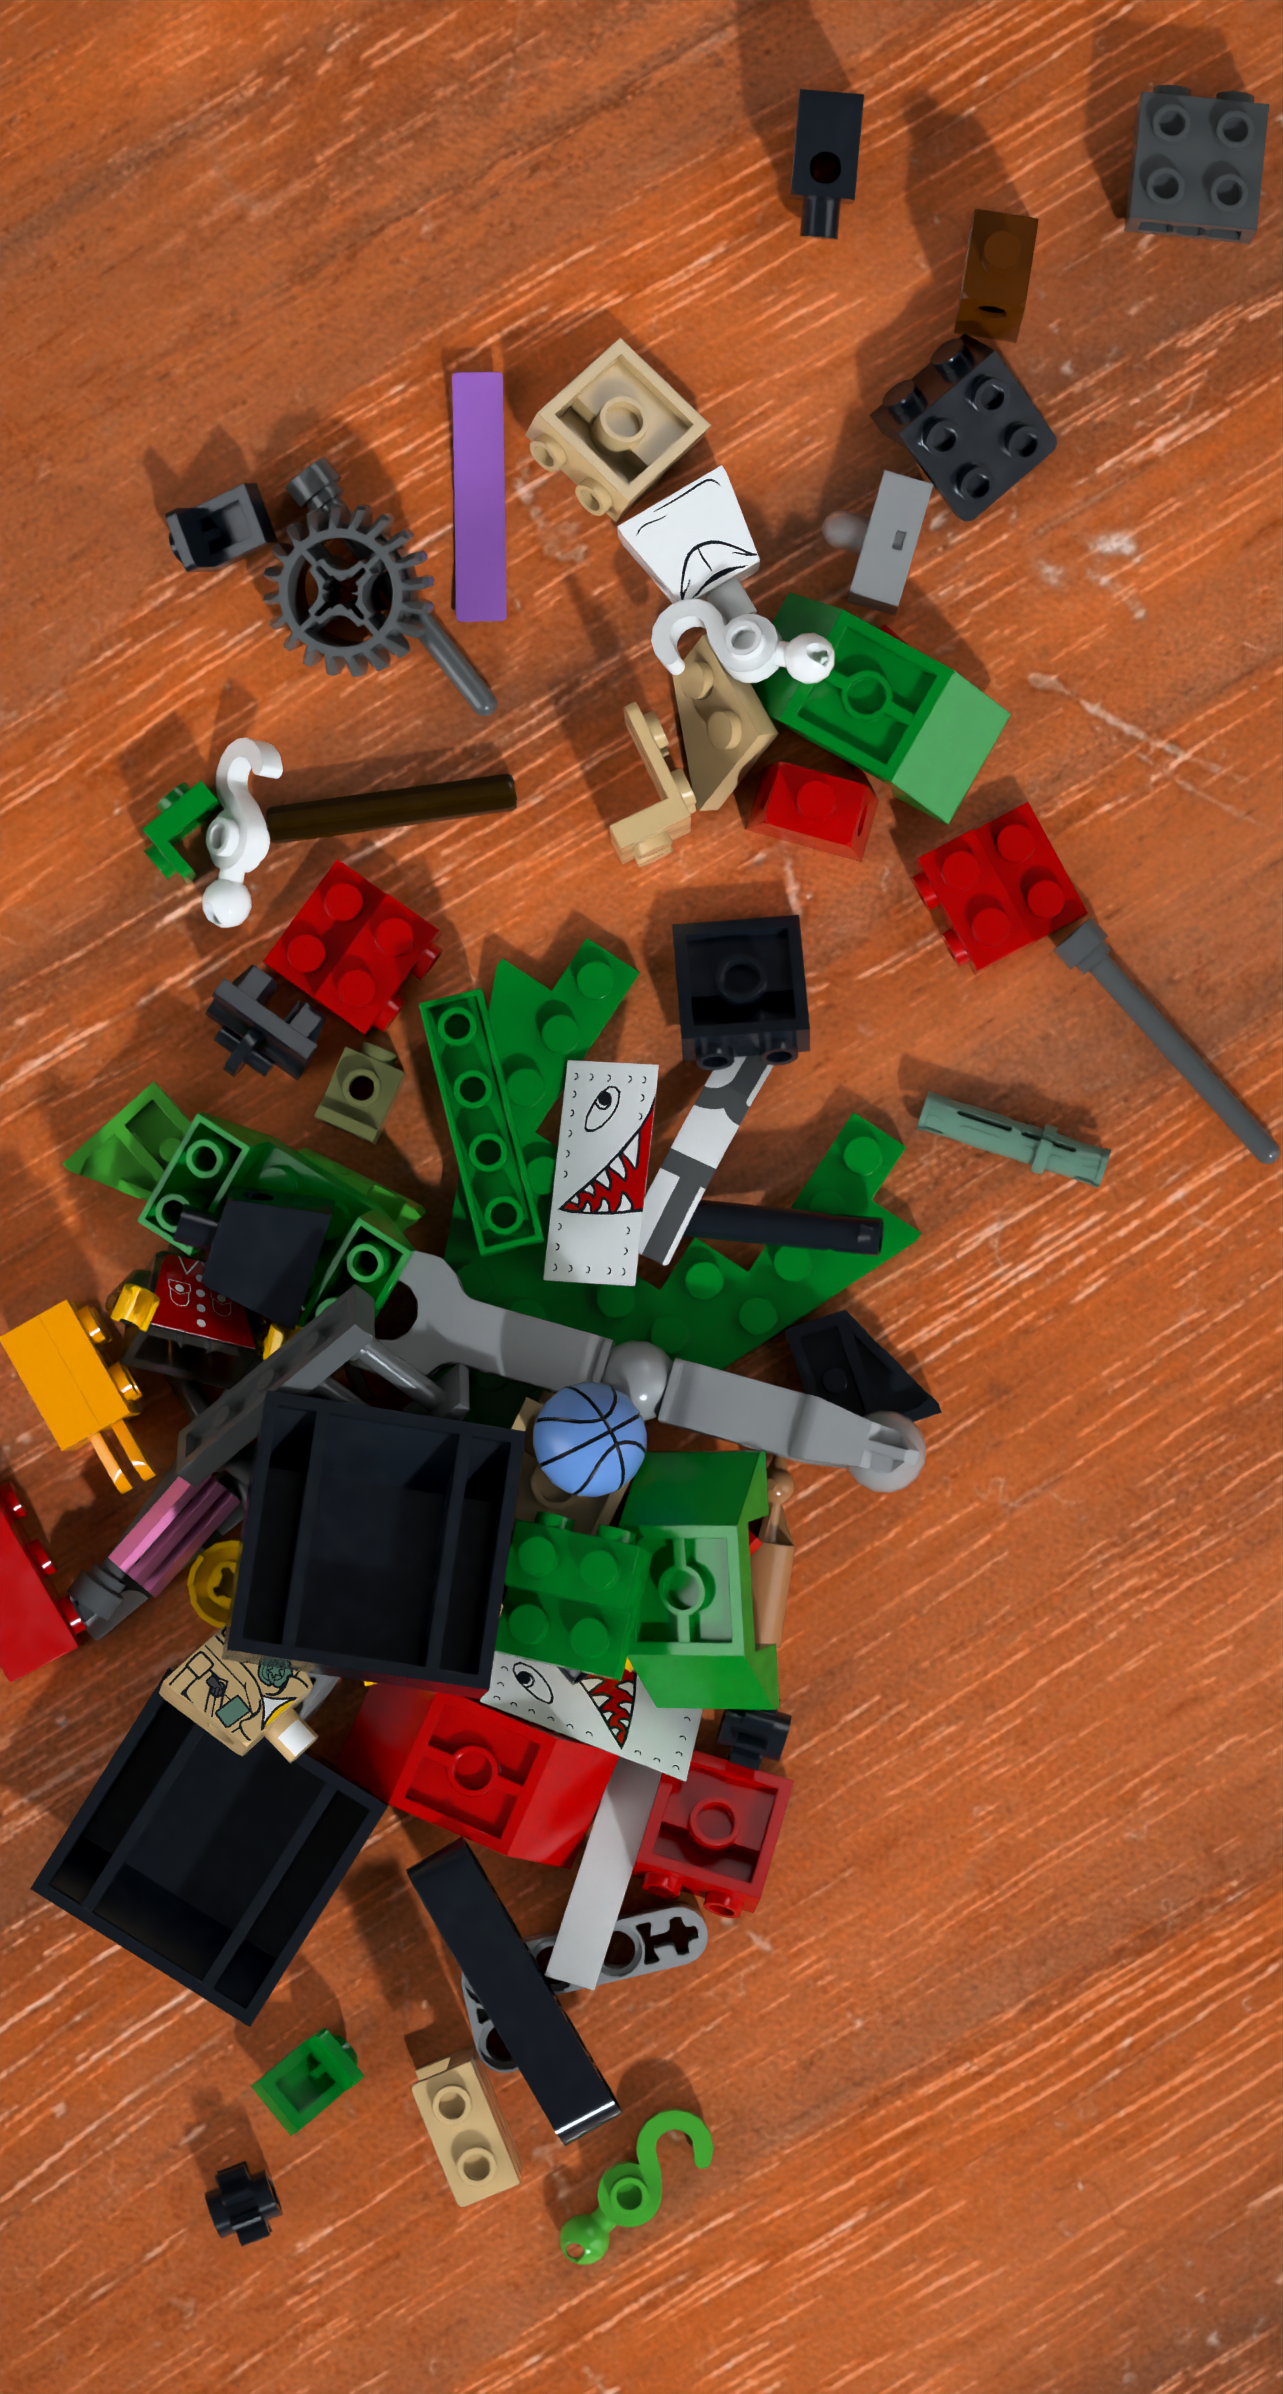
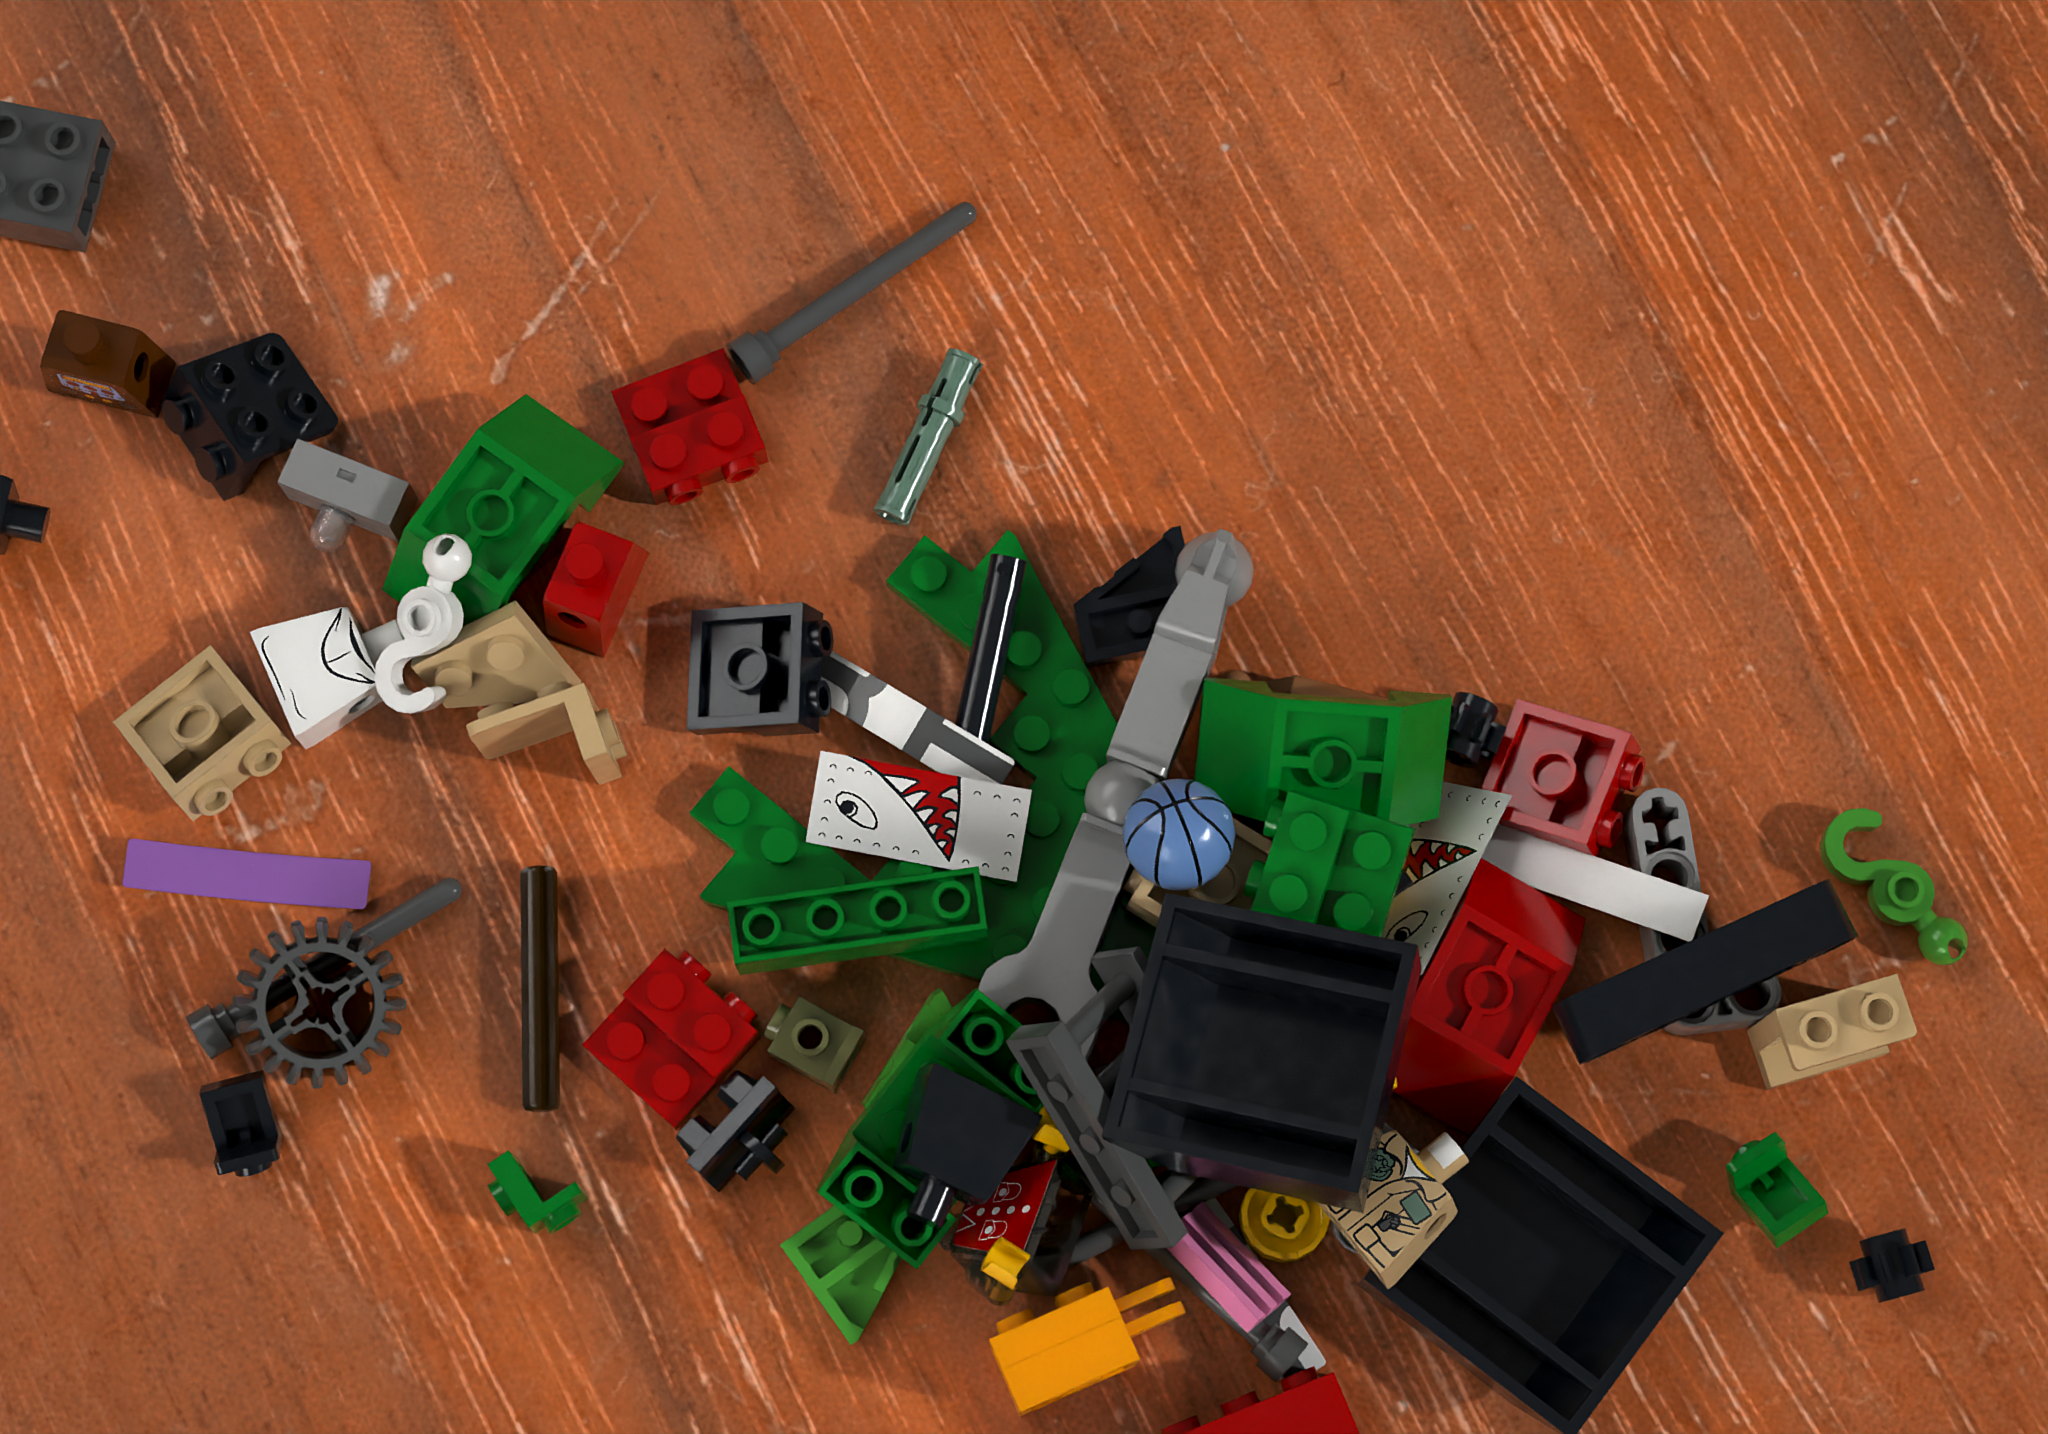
camera: 85 degrees left, 10 degrees down
(239, 833) = (544, 1136): white piece -> none

